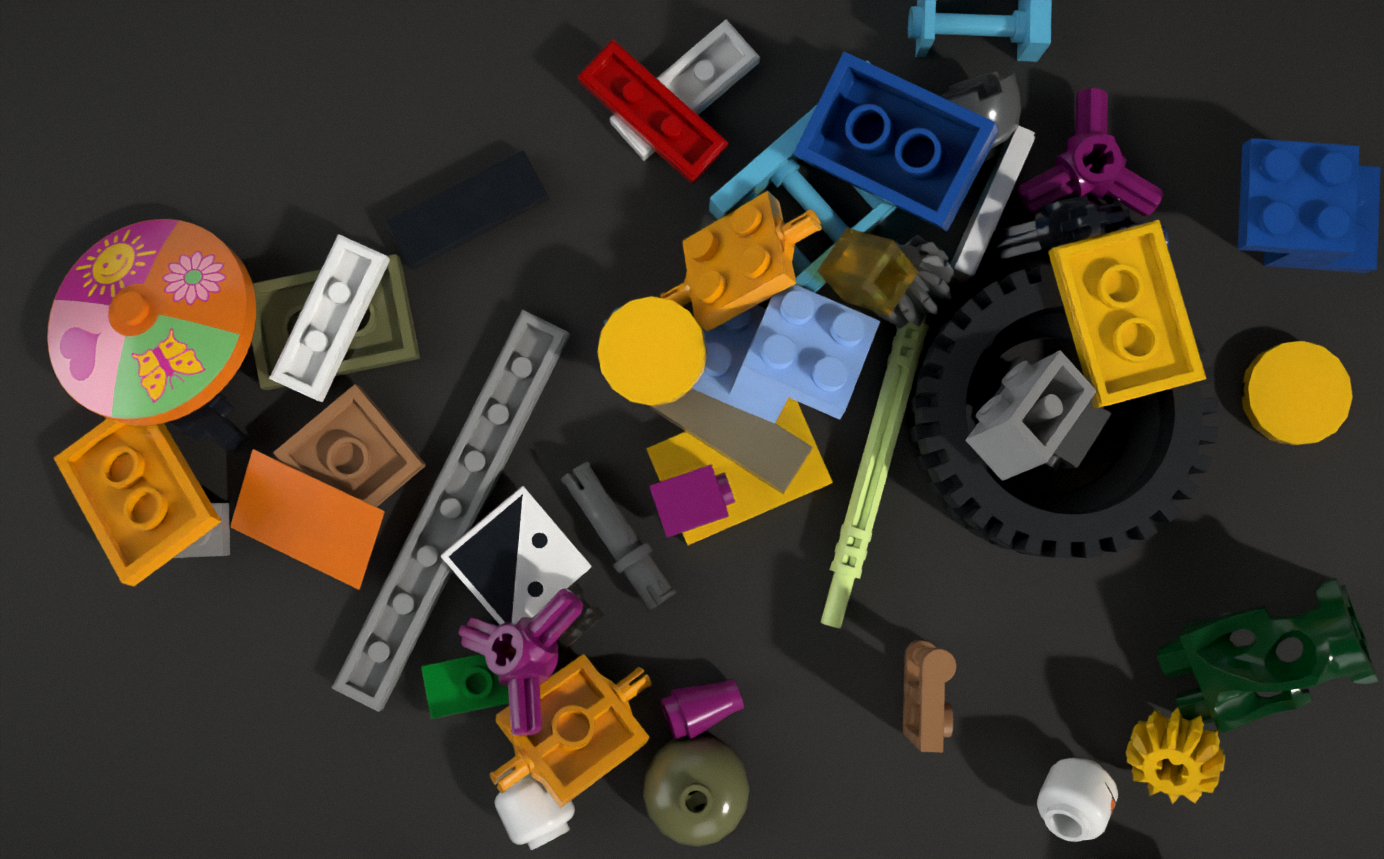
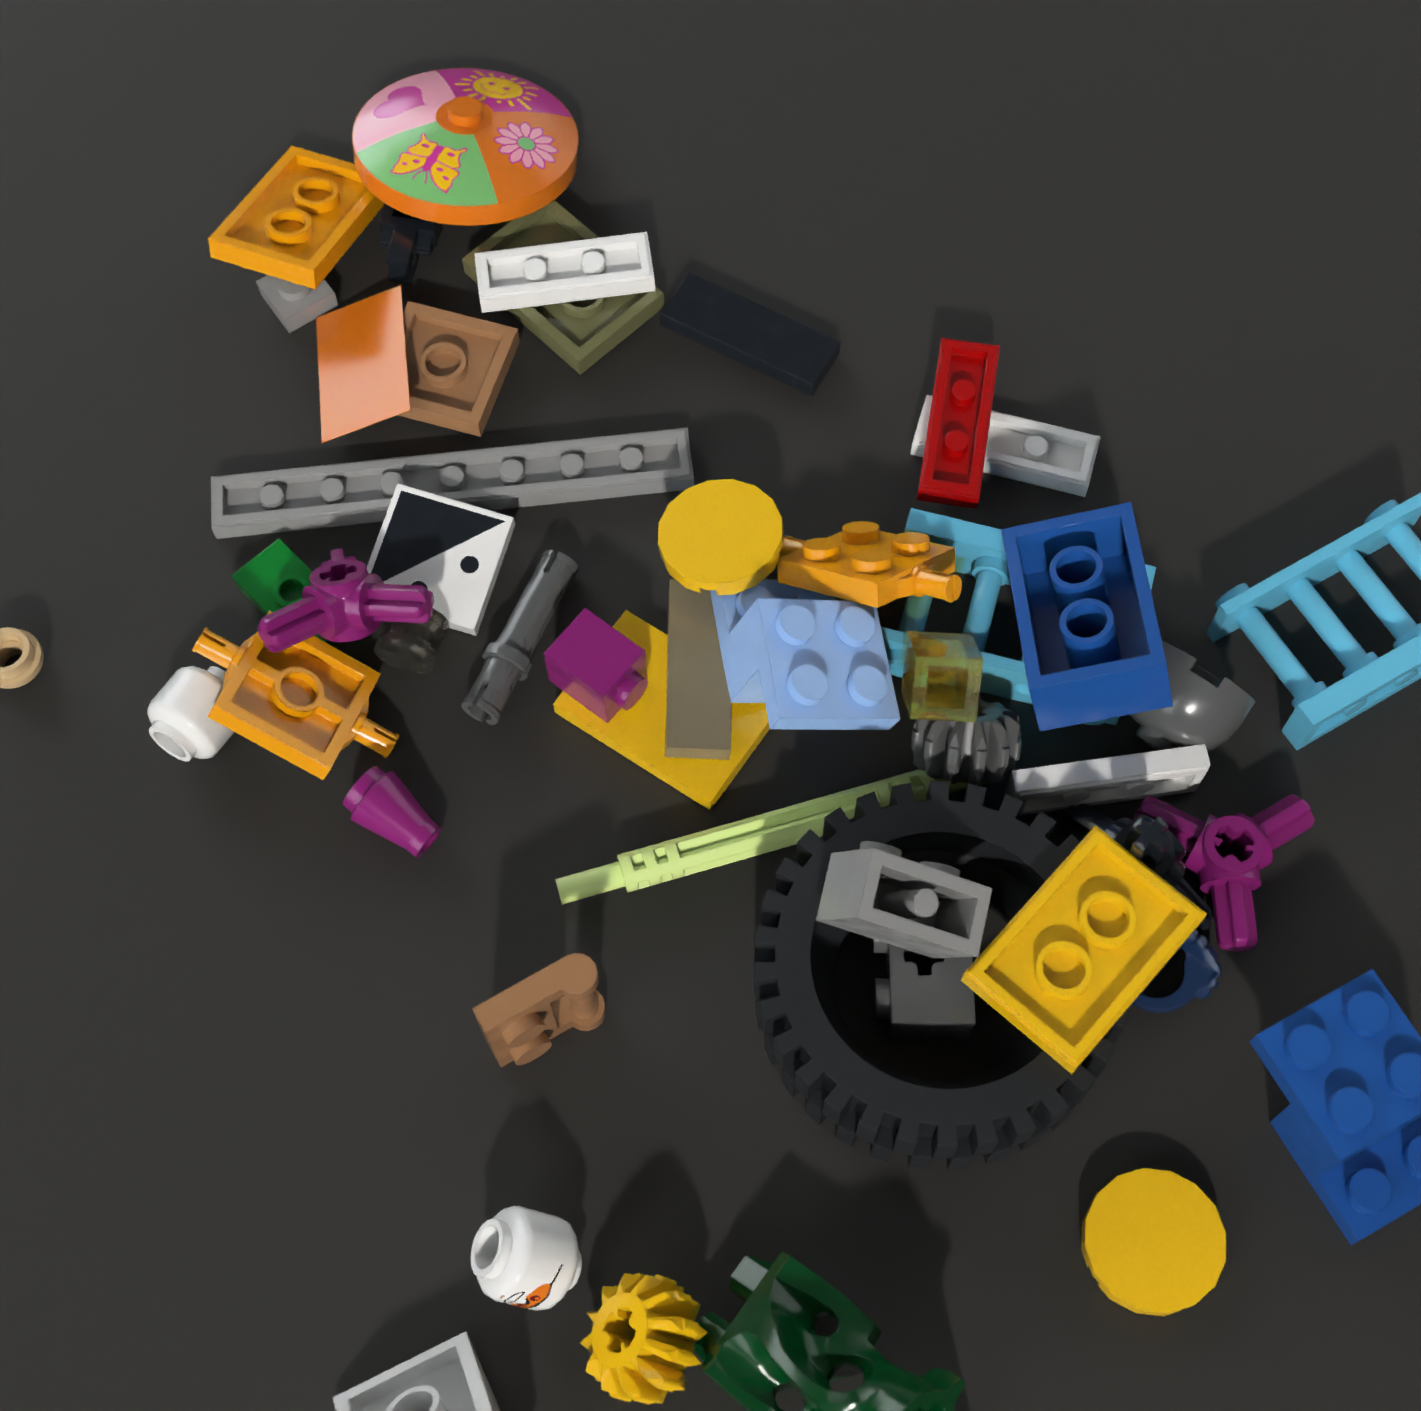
camera: 60 degrees right, 20 degrees down
(719, 796) = (301, 861): olive cylinder -> none

